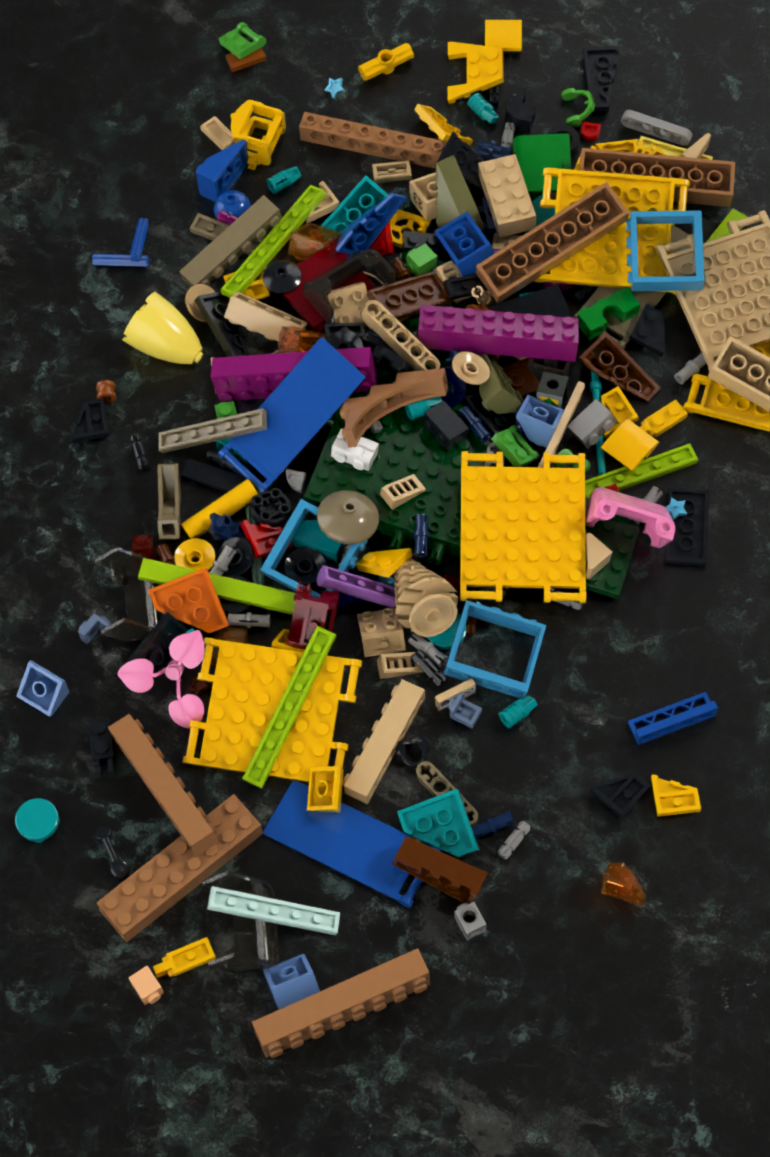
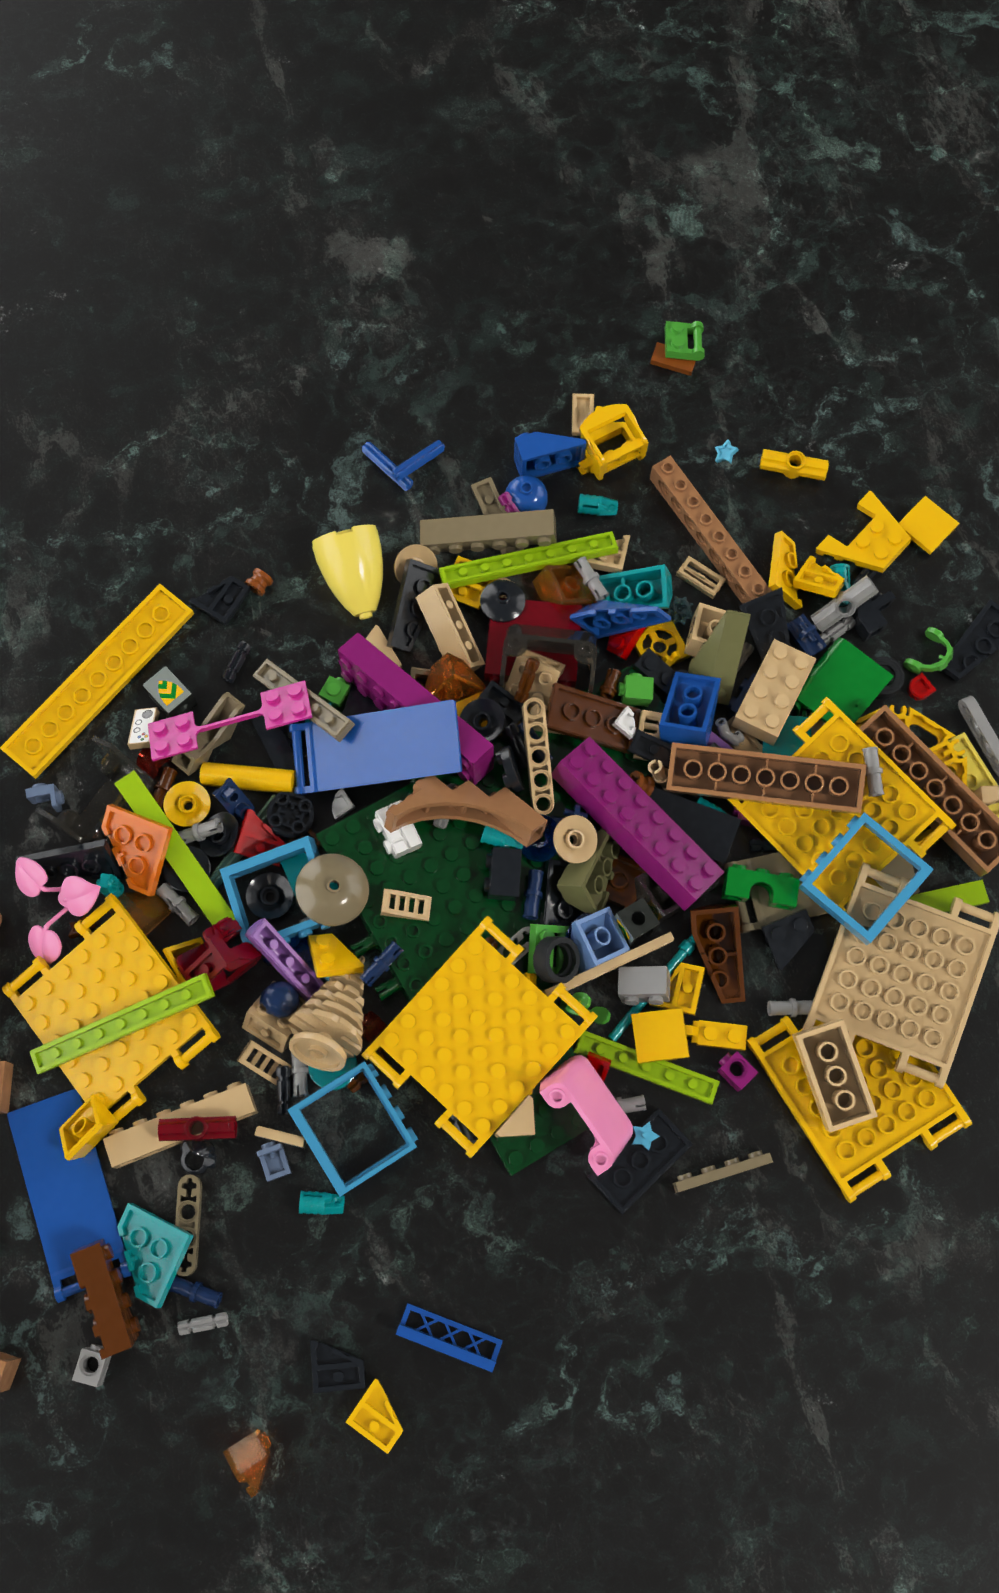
camera: 35 degrees right, 10 degrees up
(56, 535) = (97, 681): none -> yellow plate
(116, 502) = (169, 693): none -> piece
(119, 535) = (139, 730): none -> tile
(153, 514) = (179, 733): none -> dark pink hinge
(325, 221) = (591, 579): none -> light grey pin
(348, 304) = (526, 680): none -> reddish brown axle
(375, 612) = (280, 999): none -> dark blue hair
(391, 733) = (181, 1128): none -> dark red piece
(433, 284) = (625, 723): none -> white tile
(470, 114) = (818, 579): none -> yellow wing
(499, 244) = (725, 733): none -> light grey arm
(501, 104) = (856, 595): none -> light grey piece
(527, 454) = (571, 959): none -> black tyre
(621, 193) = (873, 771): none -> light grey pin
(699, 422) = (748, 1072): none -> magenta brick
(737, 496) = (731, 1168): none -> dark tan plate

